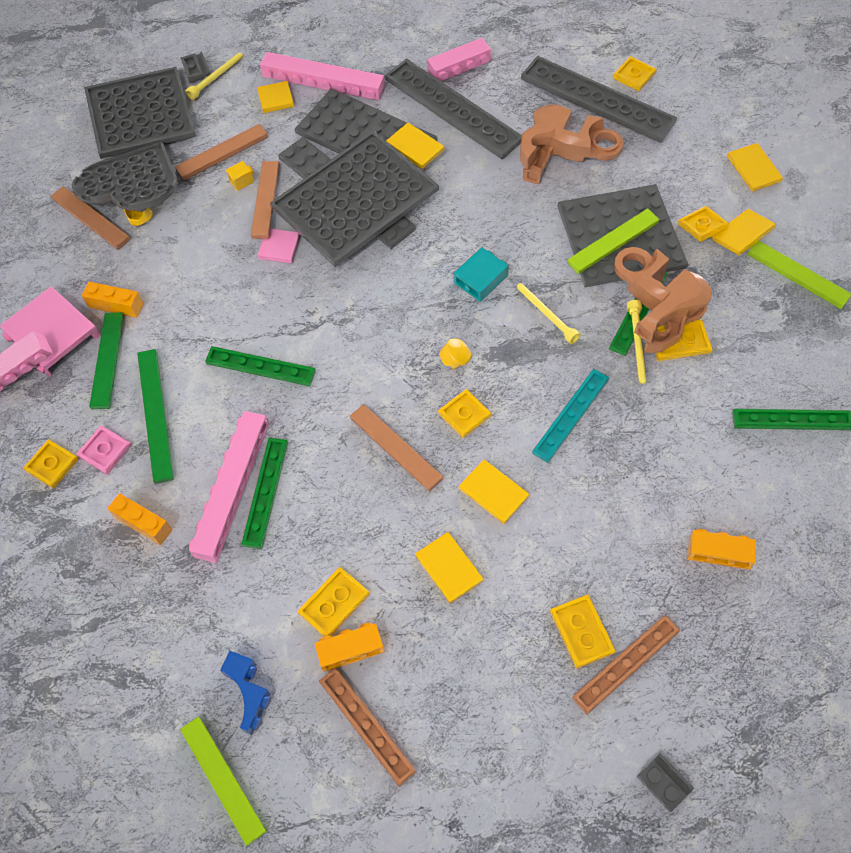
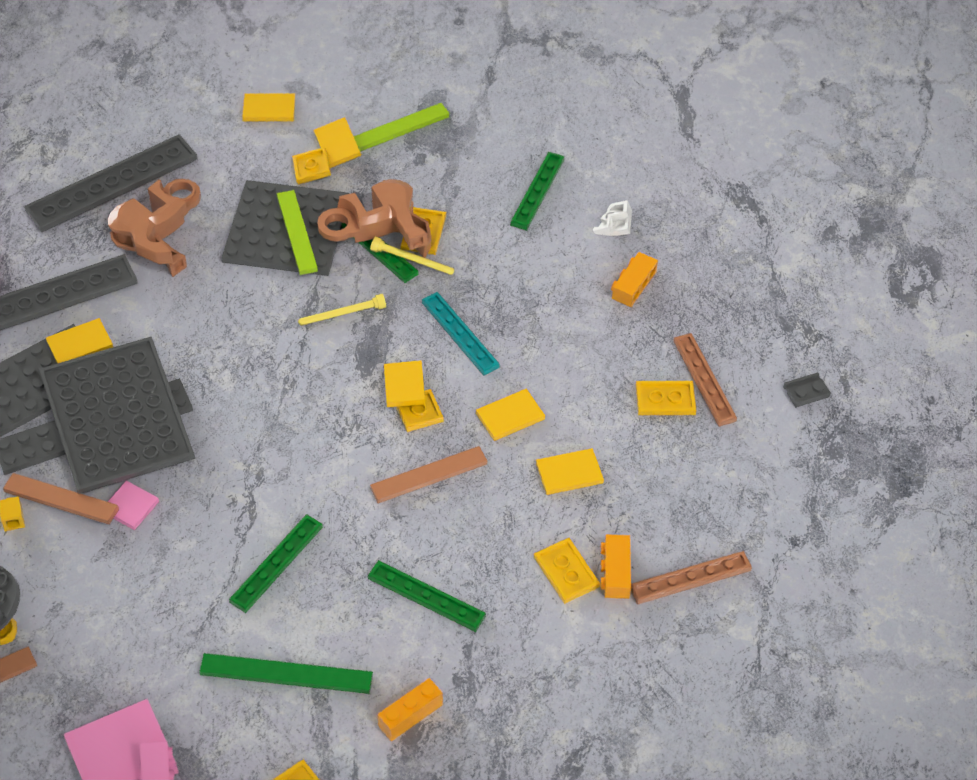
camera: 75 degrees left, 10 degrees down
(104, 449) = (305, 732): bright pink tile -> none
(106, 361) = (191, 706): green tile -> none
(112, 299) = (114, 678): light orange brick -> none
(223, 781) = (700, 702): lime tile -> none
(229, 487) = (408, 621): bright pink brick -> none
(255, 698) = (635, 654): blue arch -> none
(455, 353) = (353, 394): yellow hair -> none
(481, 274) = (273, 344): teal brick -> none
(485, 389) = (404, 384): none -> yellow tile
(634, 73) = (98, 144): yellow tile -> none
(796, 506) = (616, 220): none -> white slope

